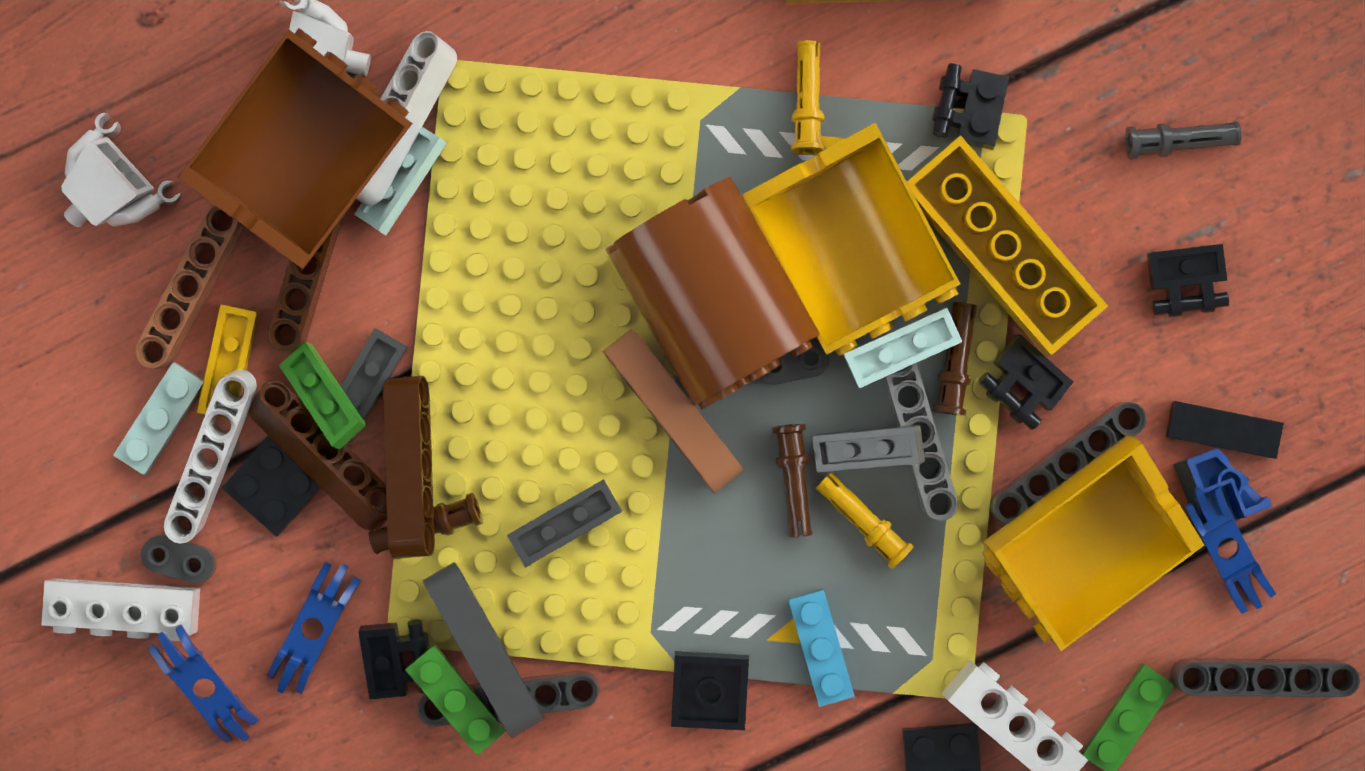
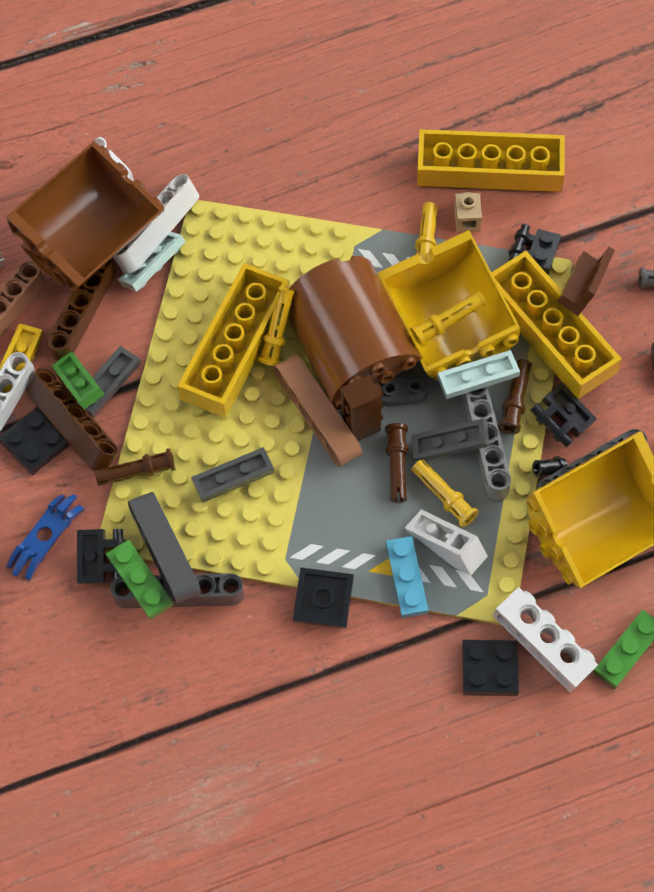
camera: 10 degrees right, 25 degrees down
(408, 467) = (129, 426): reddish brown beam -> none
(542, 313) = (231, 342): none -> yellow brick
(600, 309) = (276, 340): none -> yellow pin
(740, 420) = (362, 407): none -> reddish brown brick
(839, 284) = (435, 321): none -> yellow pin
(866, 49) = (468, 212): none -> tan brick
(871, 595) = (448, 541): none -> white slope
(1017, 460) = (549, 466): none -> black pin
(1051, 173) = (584, 281): none -> reddish brown fence

